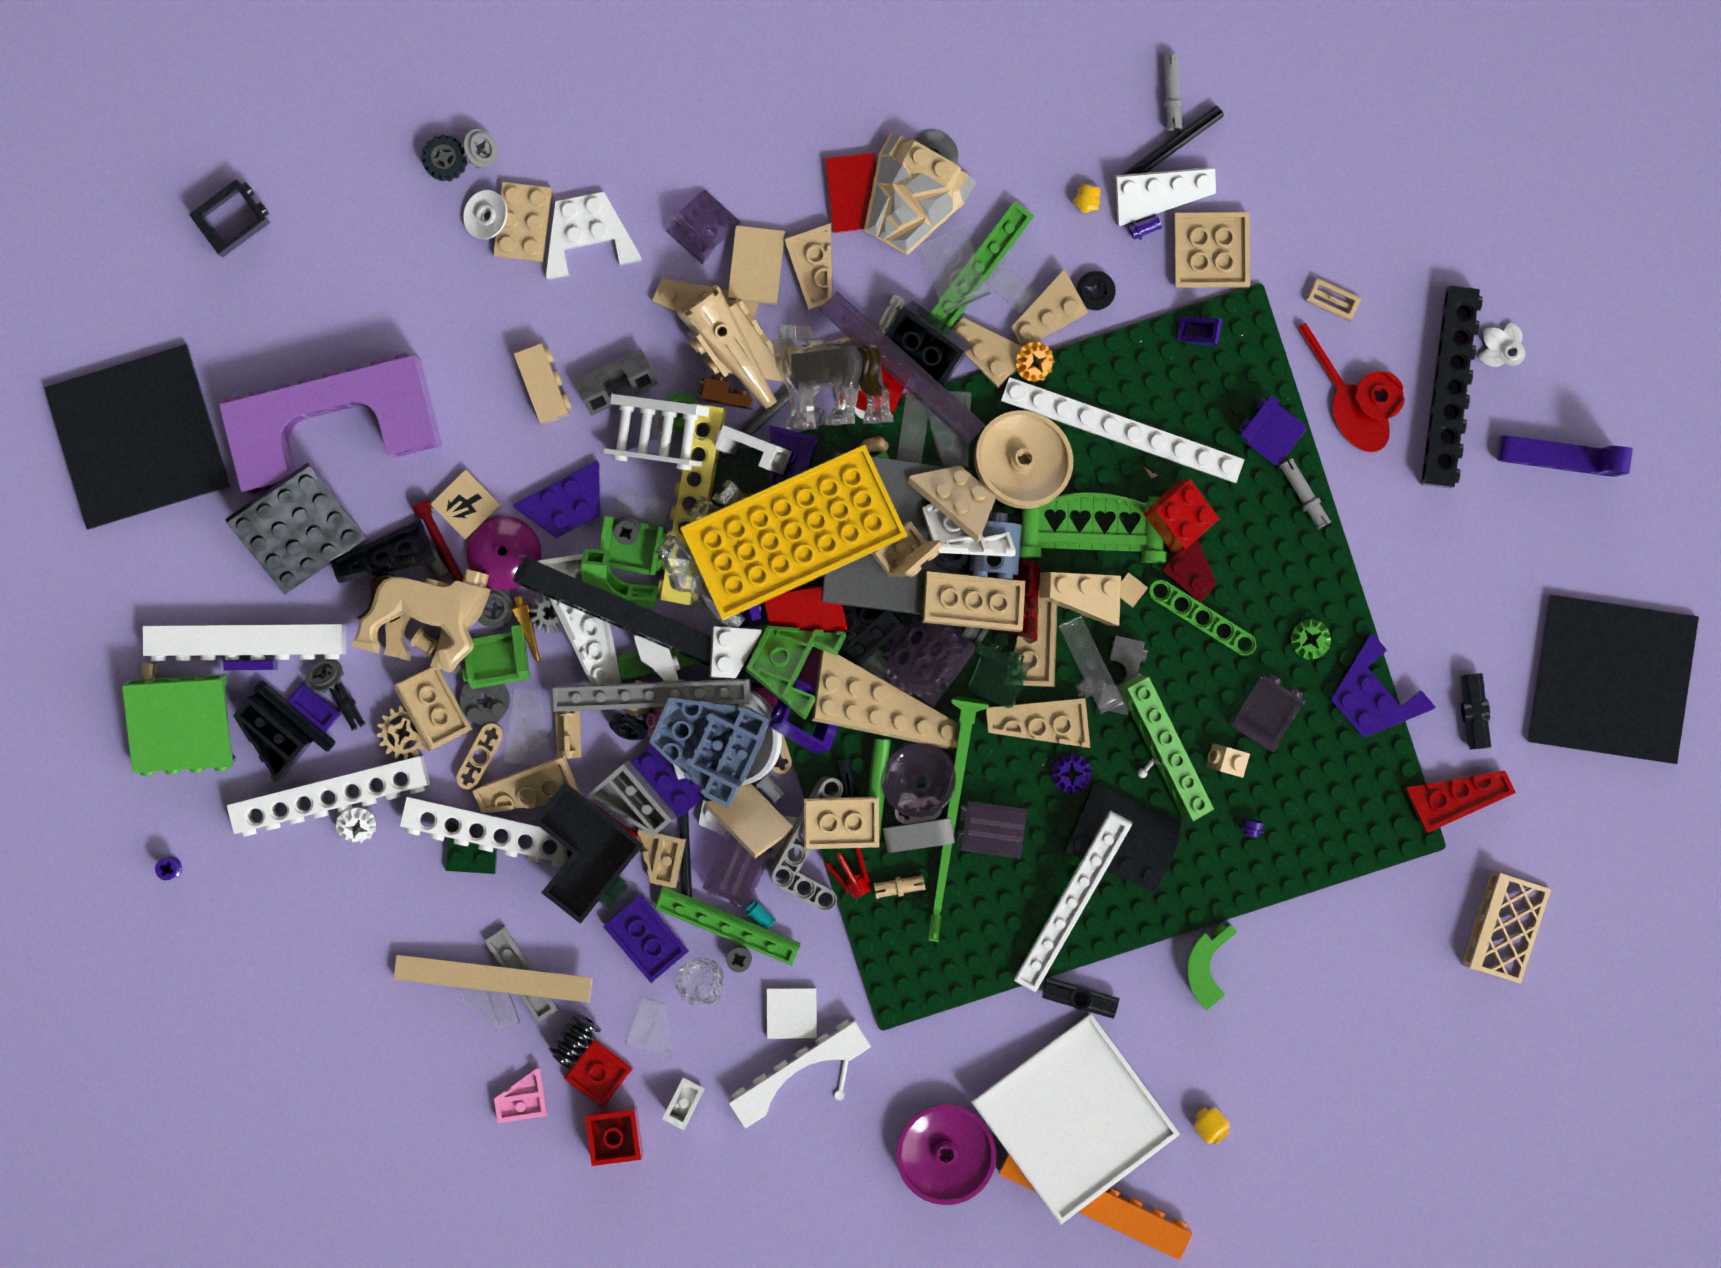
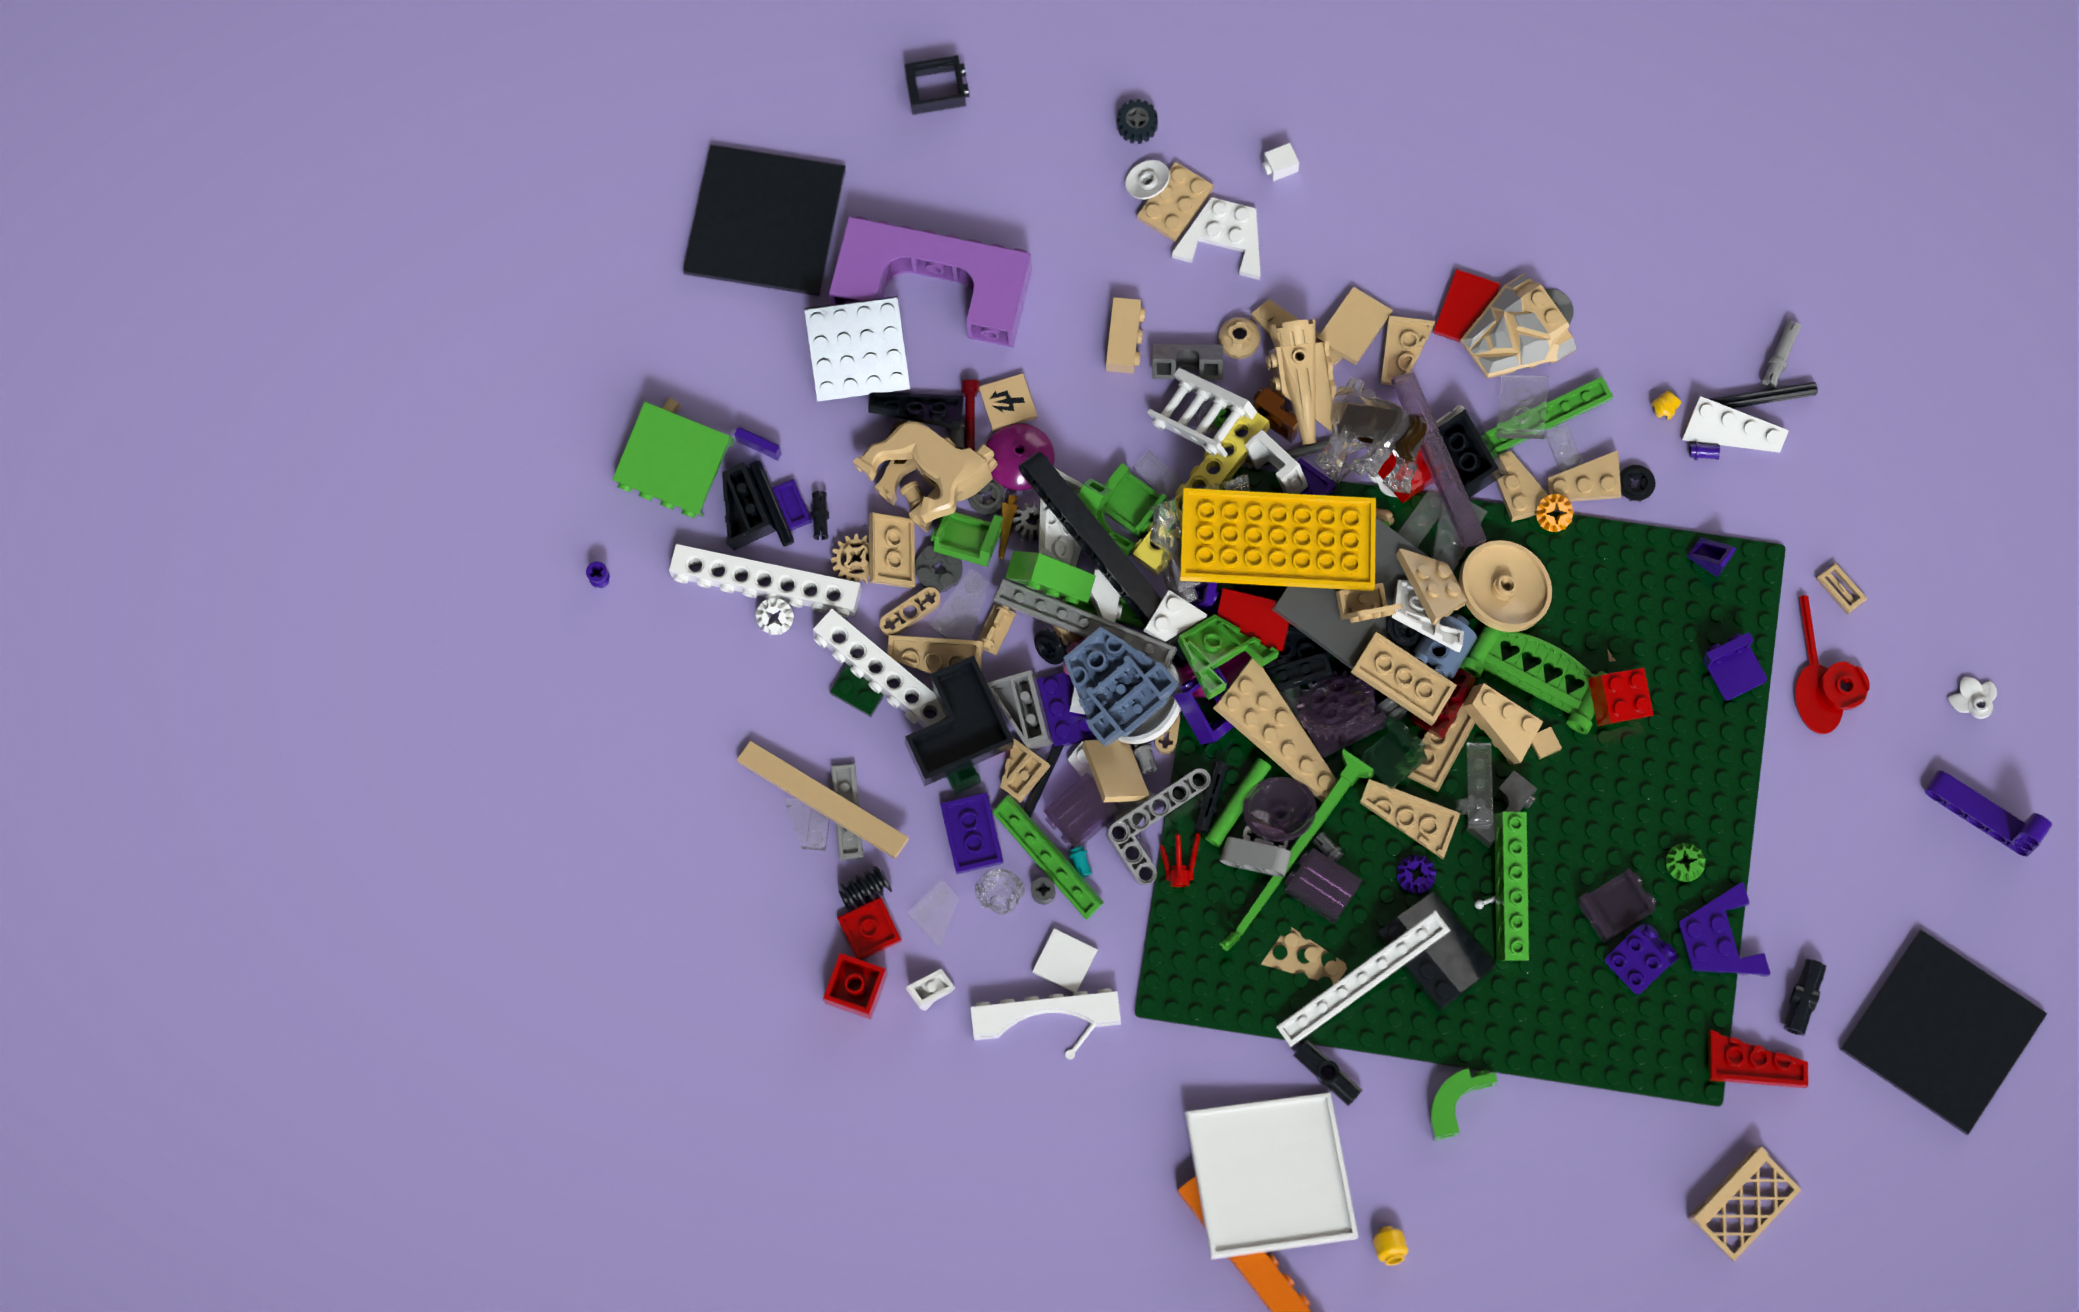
camera: 30 degrees right, 15 degrees down
(244, 640) = (764, 420): white brick -> none
(319, 670) = (815, 481): dark grey gear -> none
(487, 148) = (1176, 132): light grey gear -> none
(522, 1099) = (792, 917): bright pink wing -> none
(566, 502) = (1093, 441): dark purple wing -> none
(597, 667) = (1051, 576): none -> bright green wedge
(603, 133) = (1280, 162): none -> white brick
(629, 524) = (1139, 484): dark grey wheel -> none
(655, 343) = (1235, 347): none -> tan piece
(702, 225) = (1323, 273): clear purple bracket -> none
(841, 822) = (1193, 811): tan tile -> none
(899, 886) = (1216, 895): tan pin -> none
(946, 1154) = (1139, 1149): magenta dish -> none
(979, 790) = (1328, 847): none -> dark grey pin
(1014, 893) = (1313, 953): none -> tan wing
(1122, 430) = (1604, 608): white plate -> none
(1191, 571) = (1607, 752): dark red wing -> none
(1212, 250) = (1754, 497): tan plate -> none
(1214, 618) = (1596, 784): bright green beam -> none
(1227, 760) = (1561, 929): tan bracket -> none
(1252, 827) = (1555, 998): dark purple plate -> none
(1305, 494) = (1739, 736): light grey pin -> none
(1313, 750) = (1641, 958): none -> dark purple bracket
(1471, 301) = (1952, 637): black brick -> none

